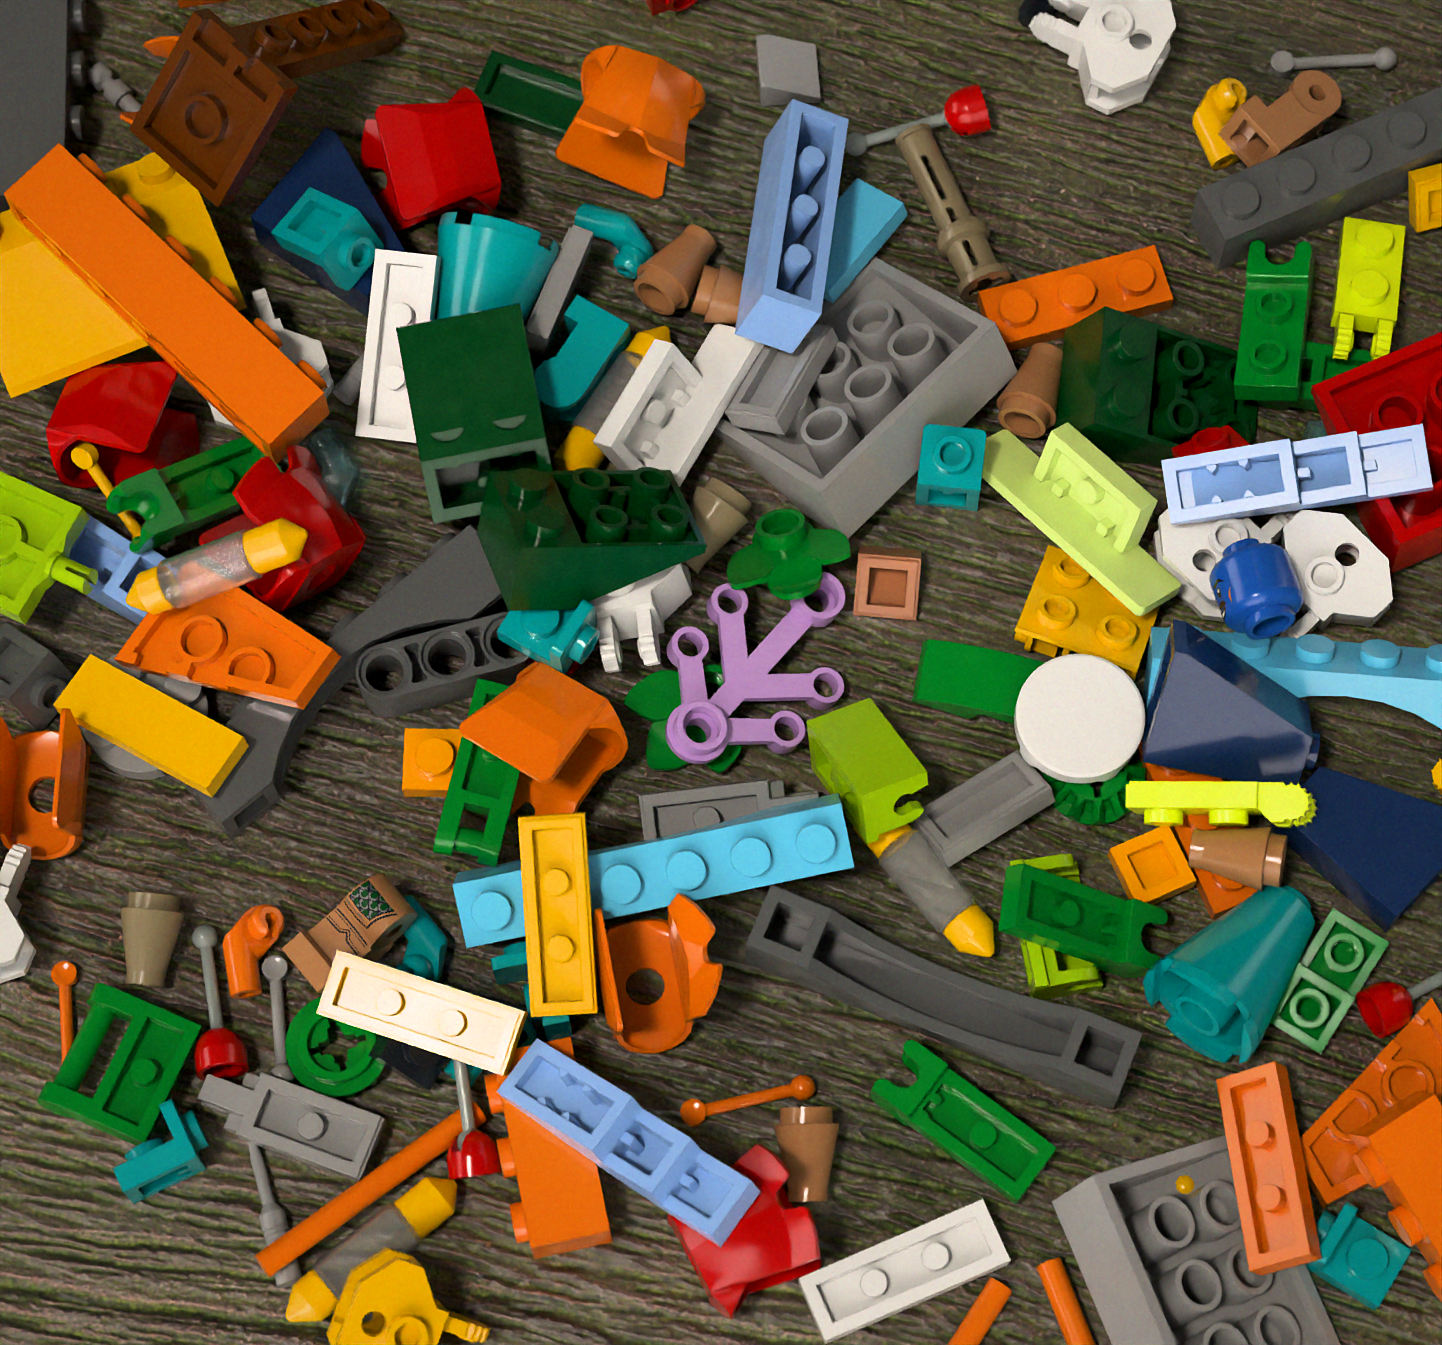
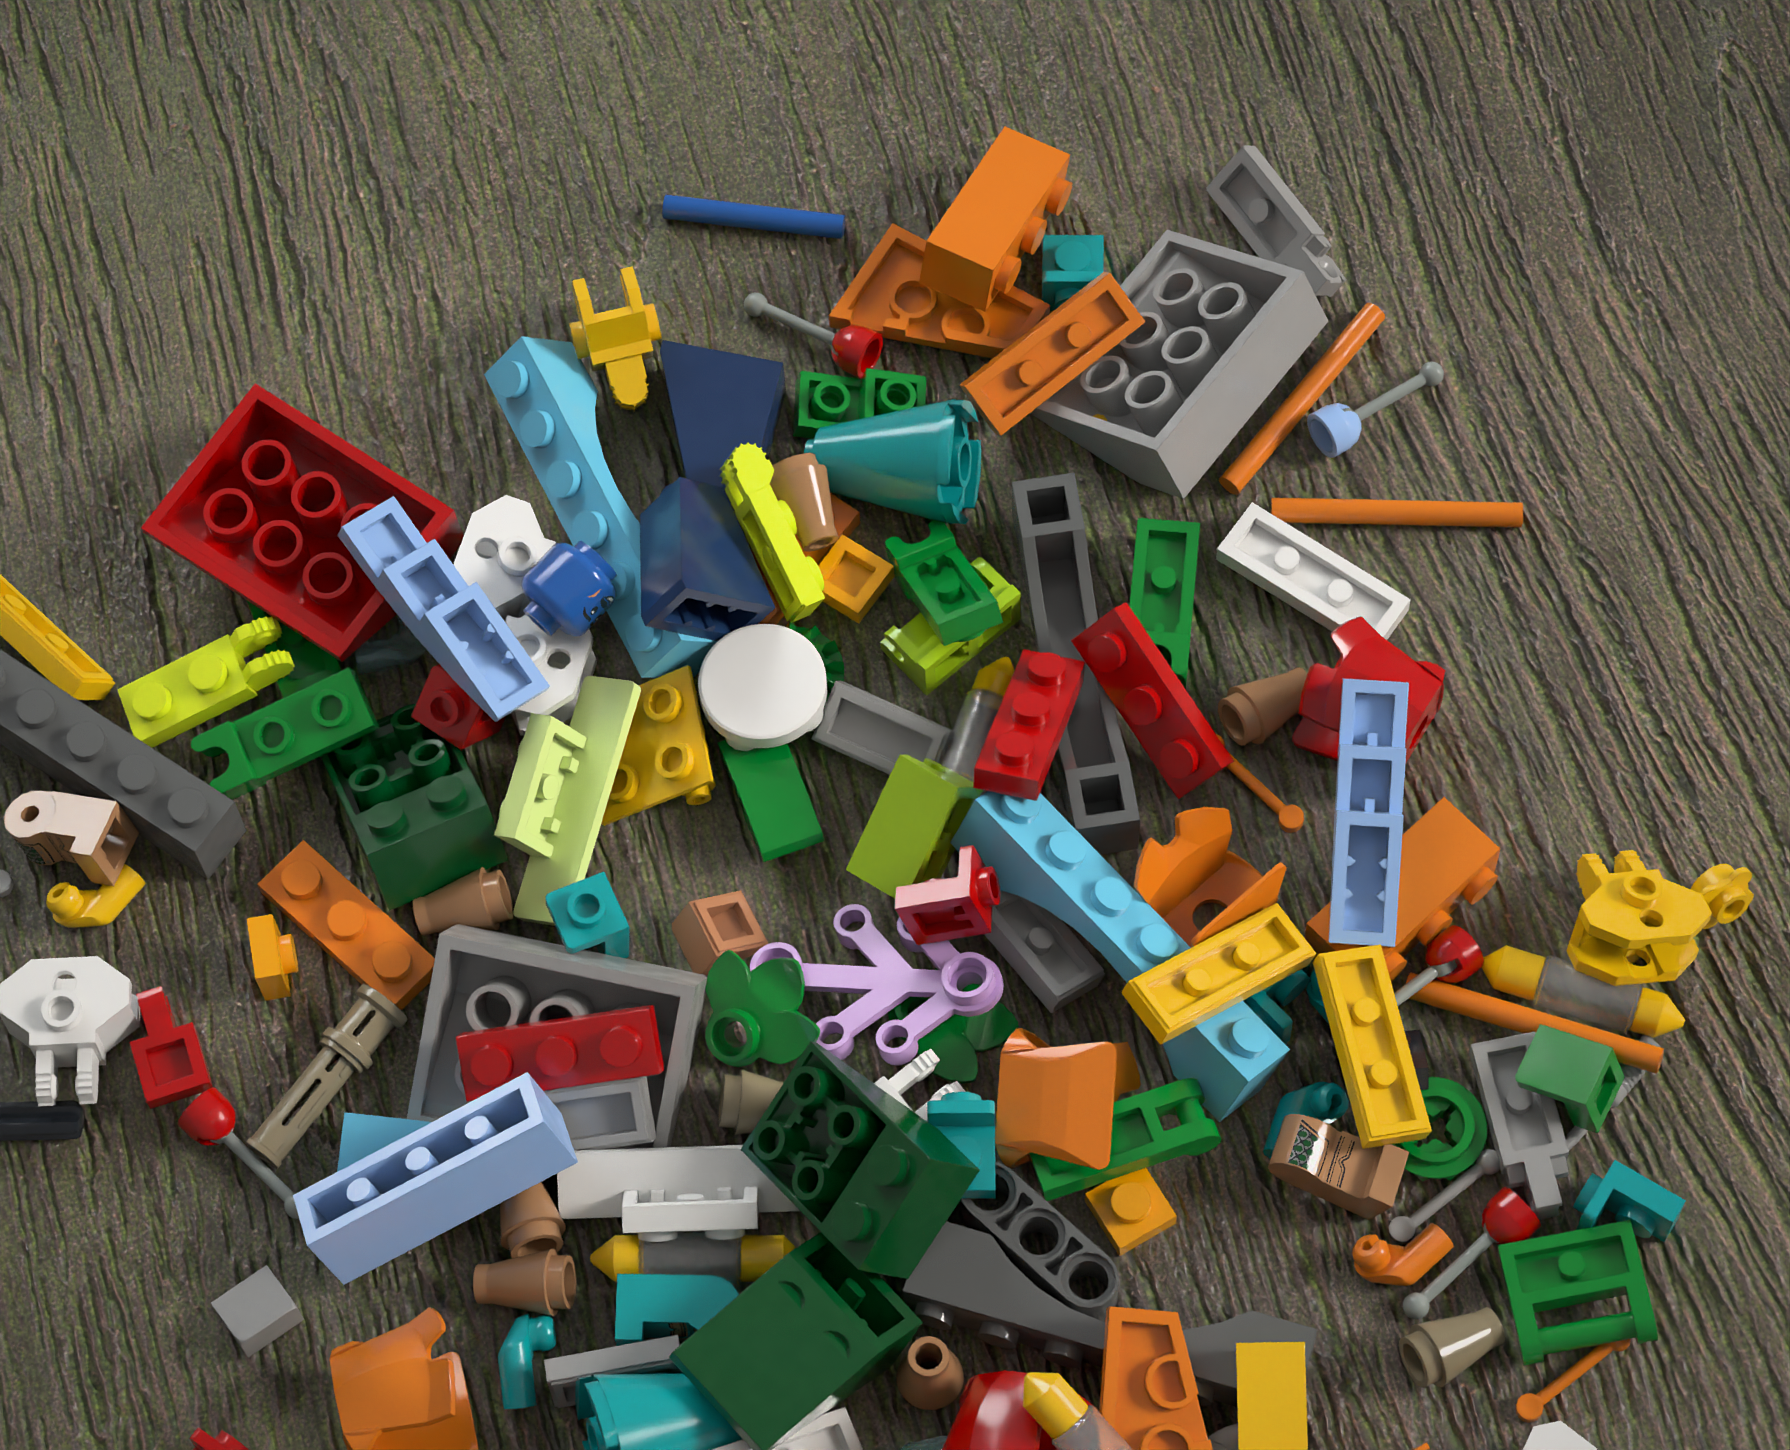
camera: 120 degrees left, 5 degrees down
(297, 1176) = (1573, 1072): none -> green panel
(400, 521) = (932, 1387): none -> medium nougat cone
(765, 757) = (951, 906): none -> red bracket
(839, 374) = (562, 1051): none -> red plate
(863, 1039) = (1152, 700): none -> red plate
(892, 904) = (1029, 725): none -> red plate
(1039, 104) = (170, 1056): none -> red plate
(1079, 219) = (272, 956): none -> light orange plate

